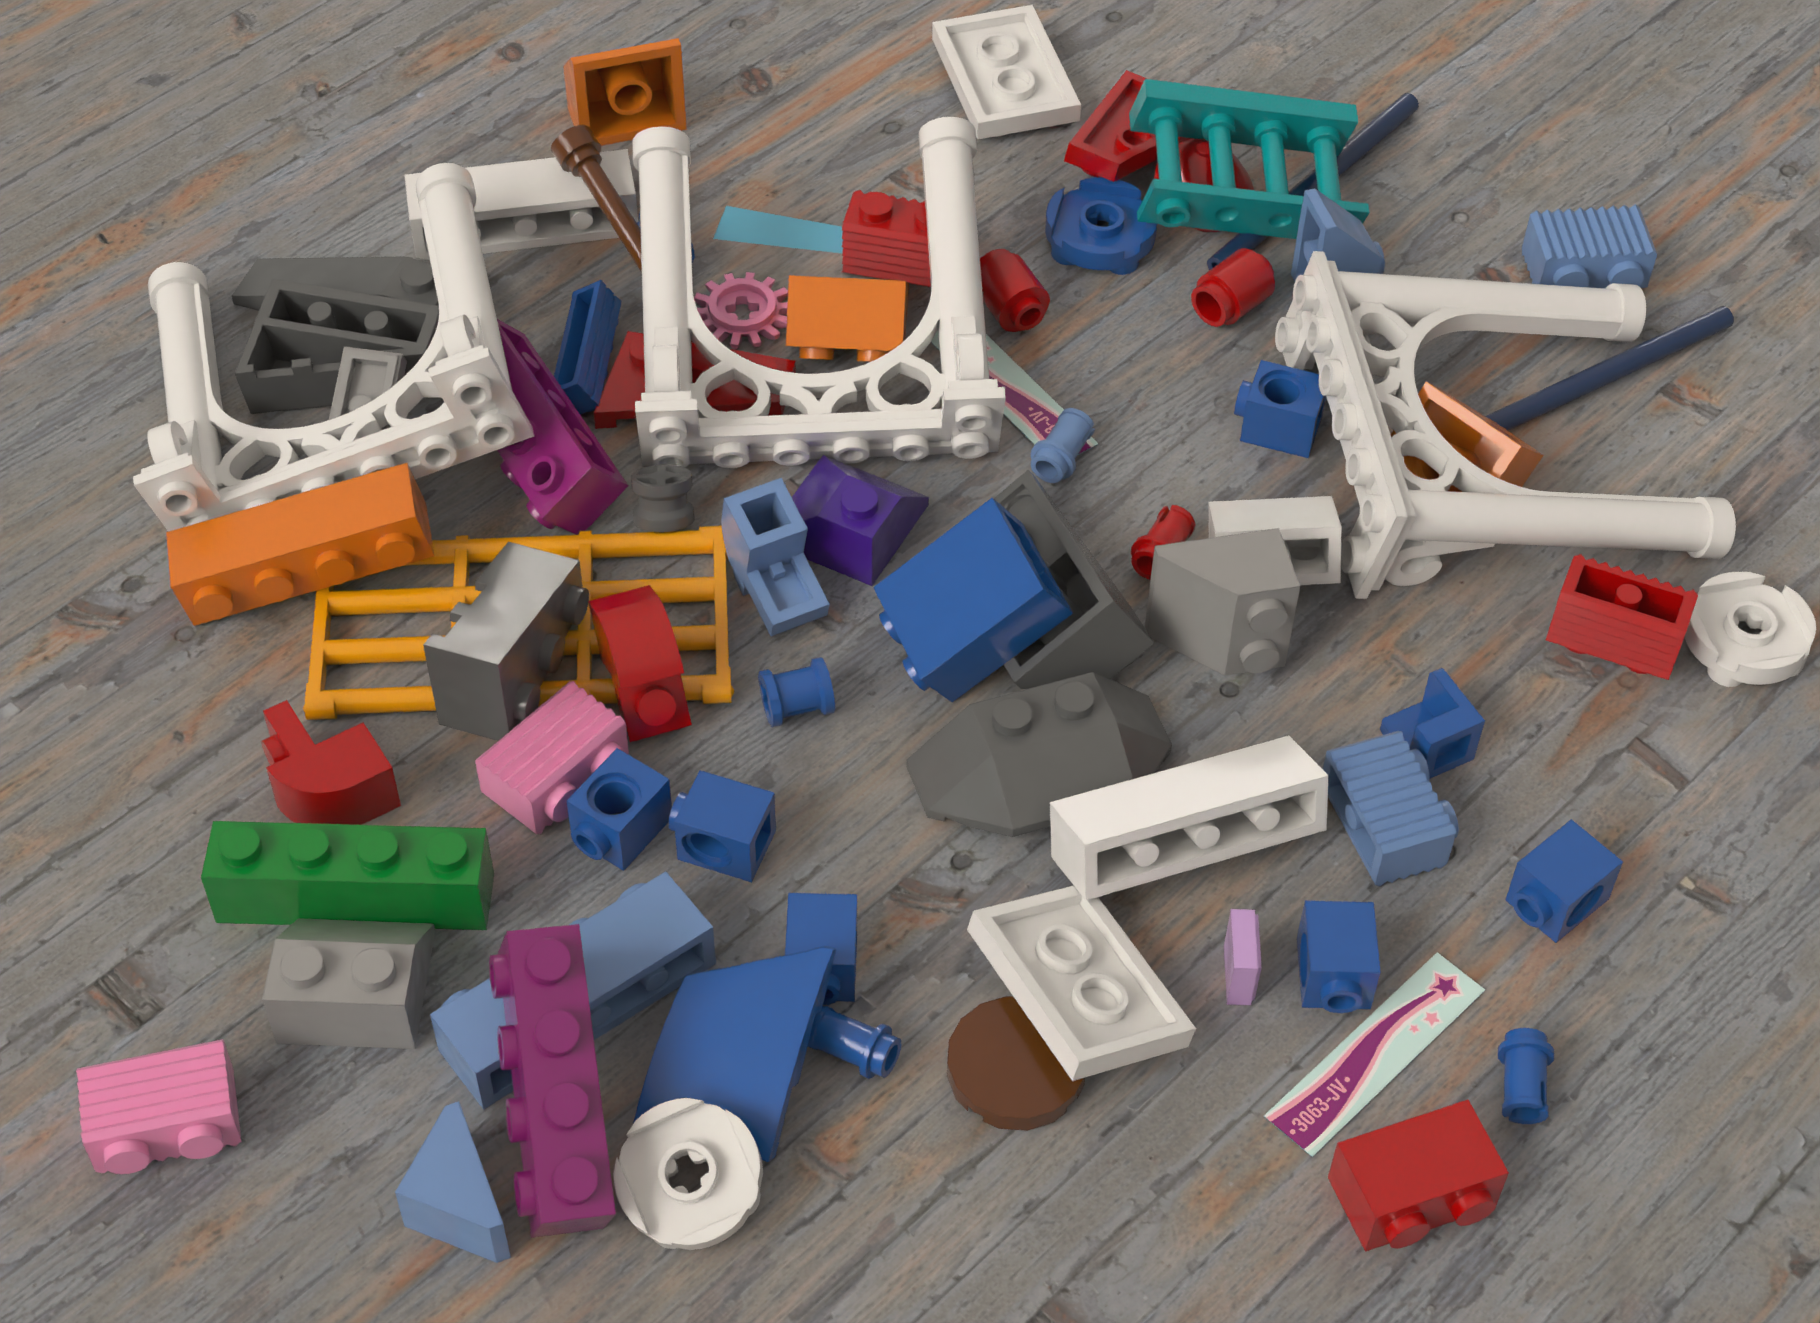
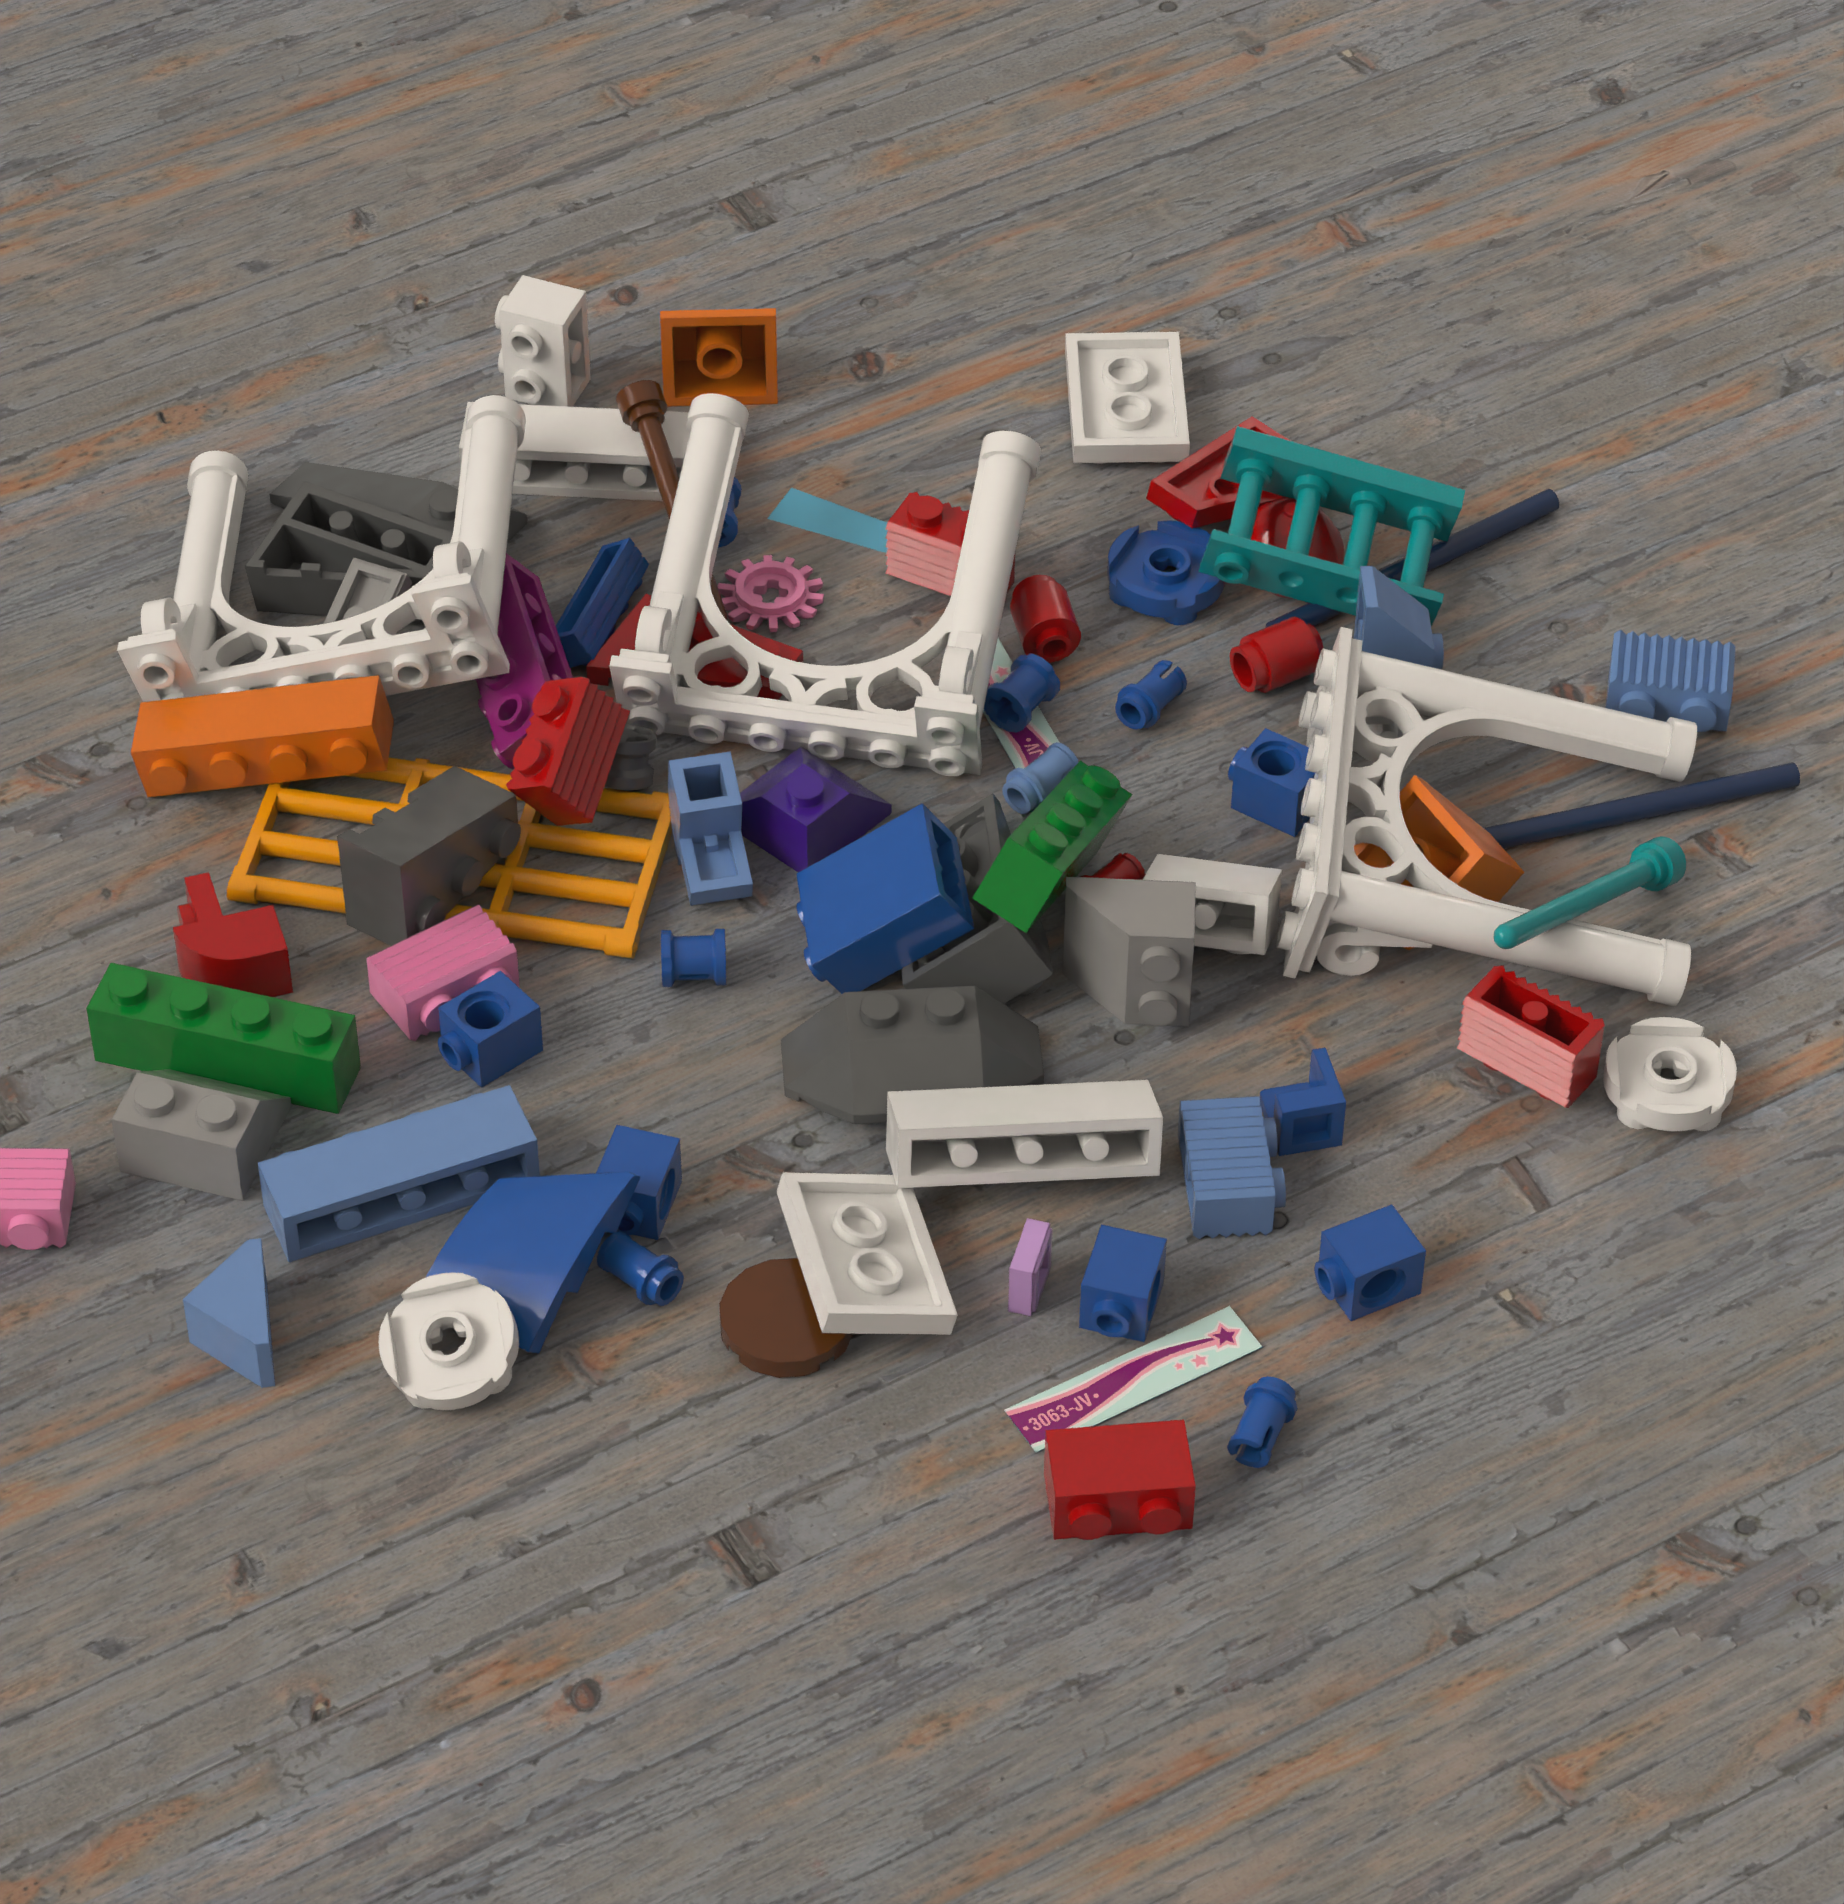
camera: 15 degrees right, 5 degrees down
(459, 106) = (543, 343): none -> white brick
(554, 1081) = (348, 1235): magenta brick -> none
(617, 505) = (568, 750): none -> red brick
(643, 661) = (549, 902): red brick -> none
(723, 825) = (583, 1061): blue brick -> none
(845, 315) = (864, 612): orange slope -> none
(1019, 355) = (1014, 699): none -> blue bush
(1121, 516) = (1052, 845): none -> green brick
(1127, 354) = (1142, 703): none -> blue pin
(1647, 428) = (1651, 866): none -> teal piece

